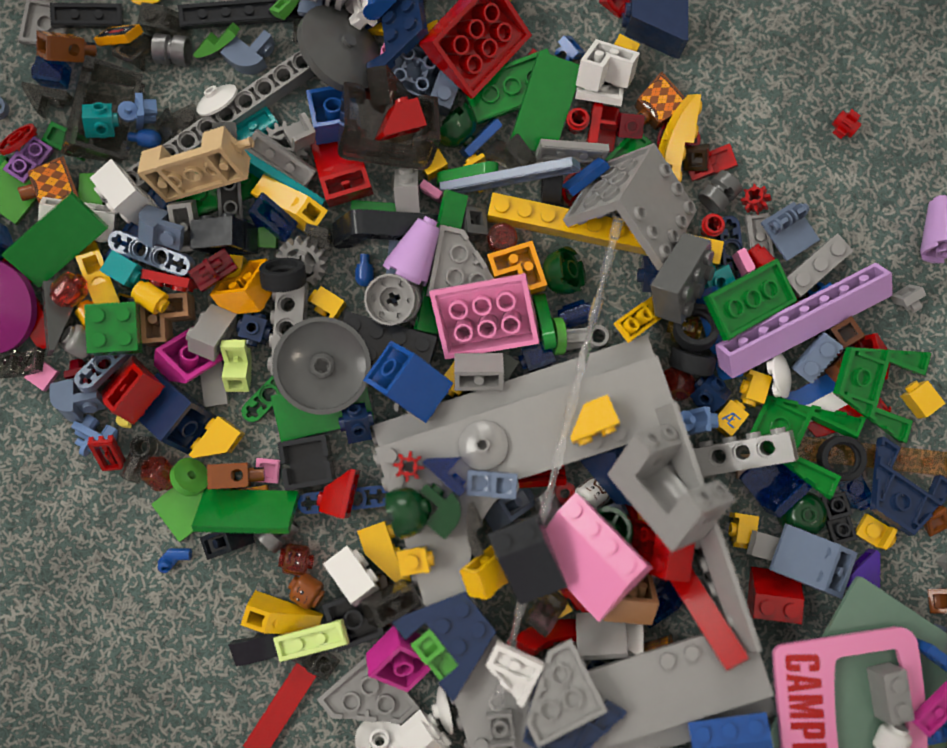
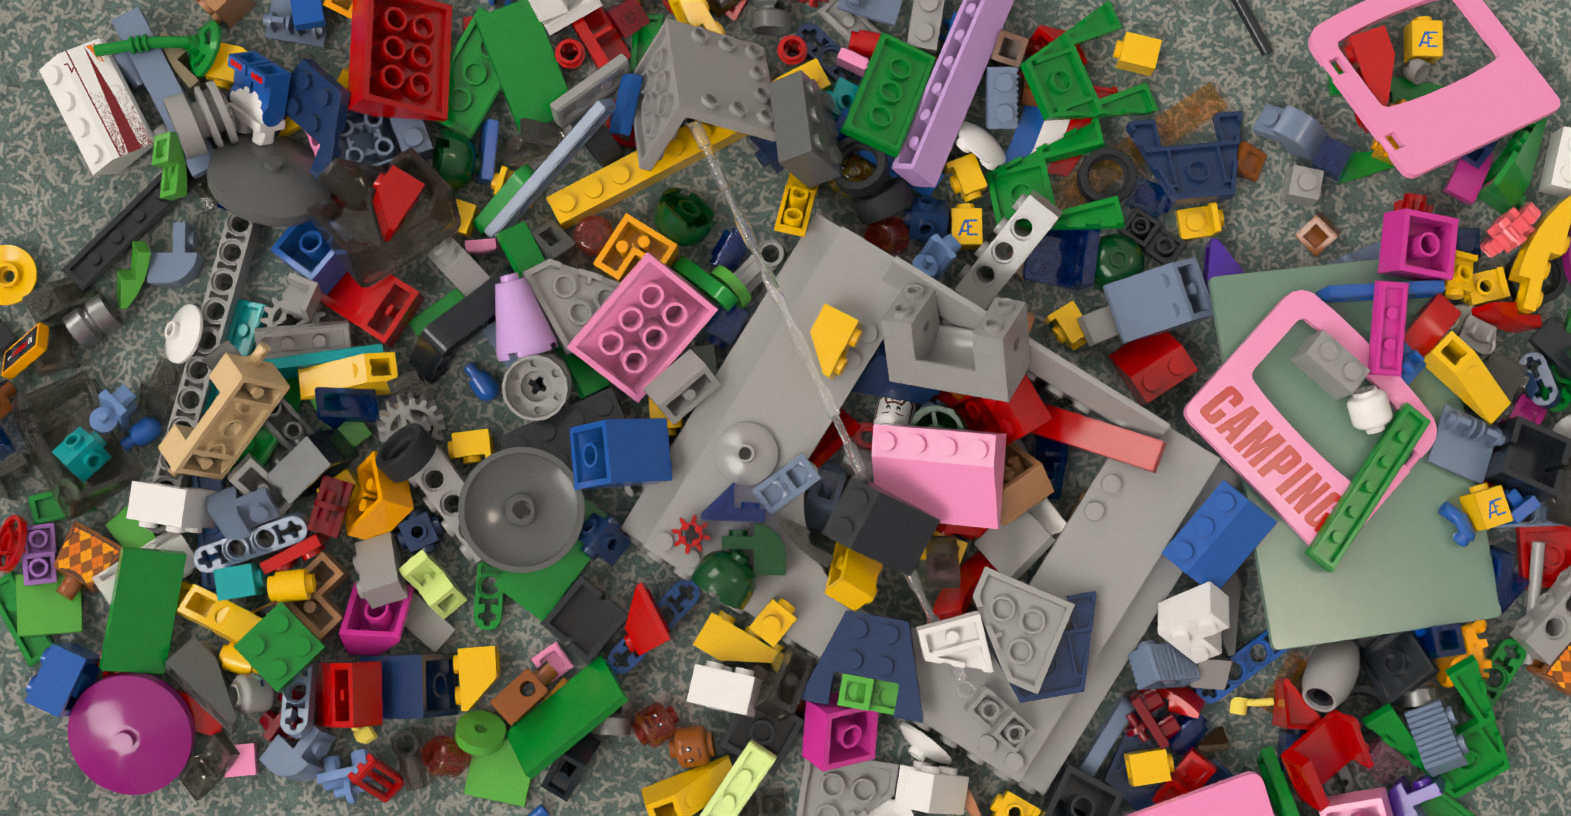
camera: 40 degrees left, 0 degrees up
(68, 289) = (200, 647): clear red head -> none

